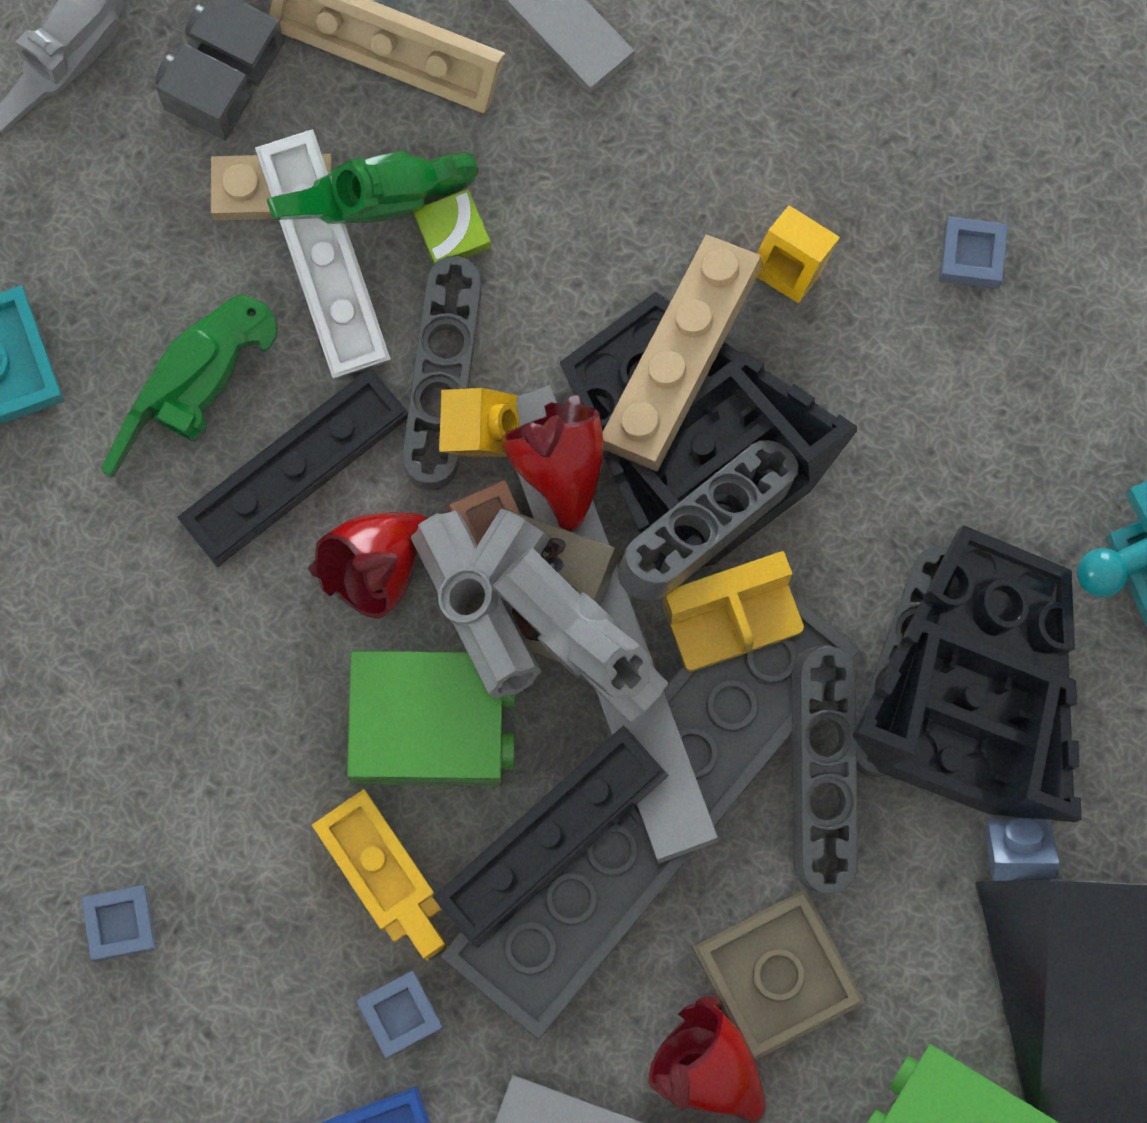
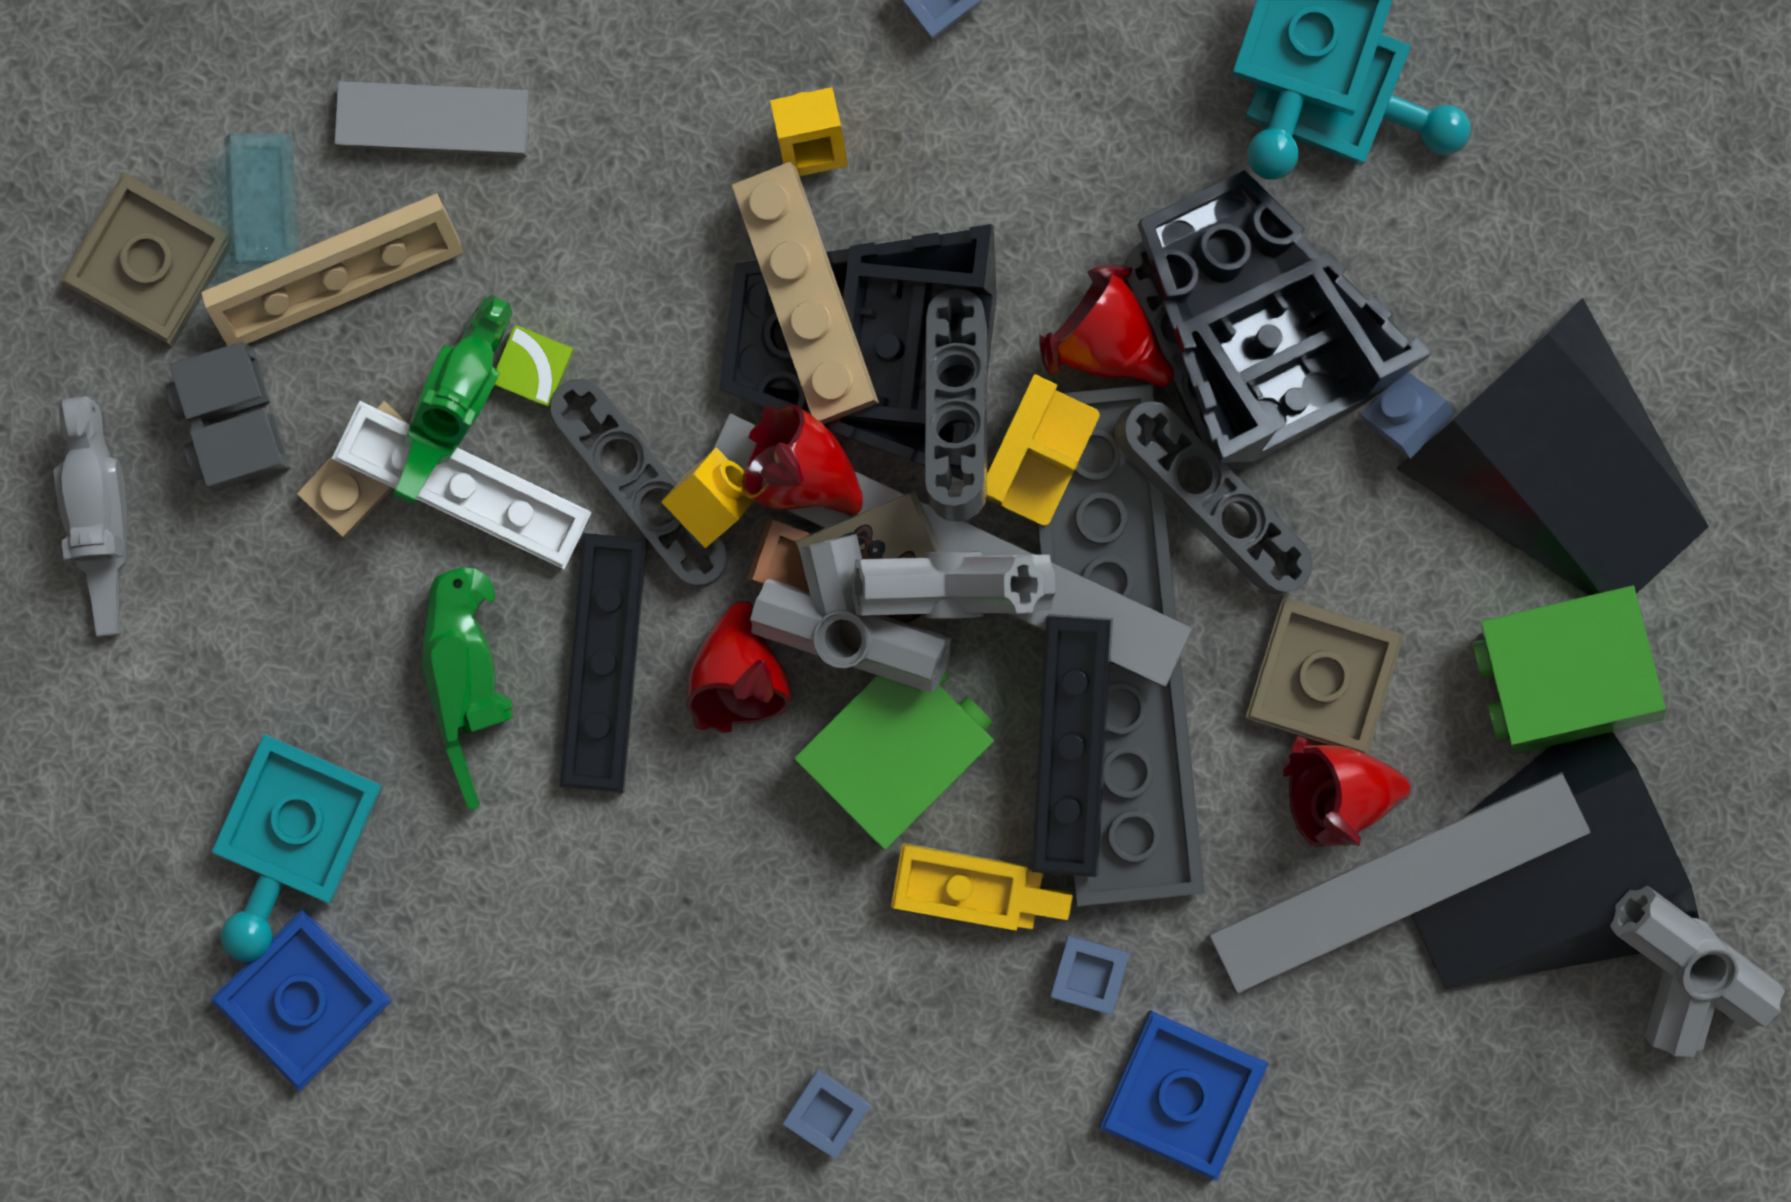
camera: 45 degrees left, 10 degrees up
(864, 585) = (1108, 334): none -> red hat

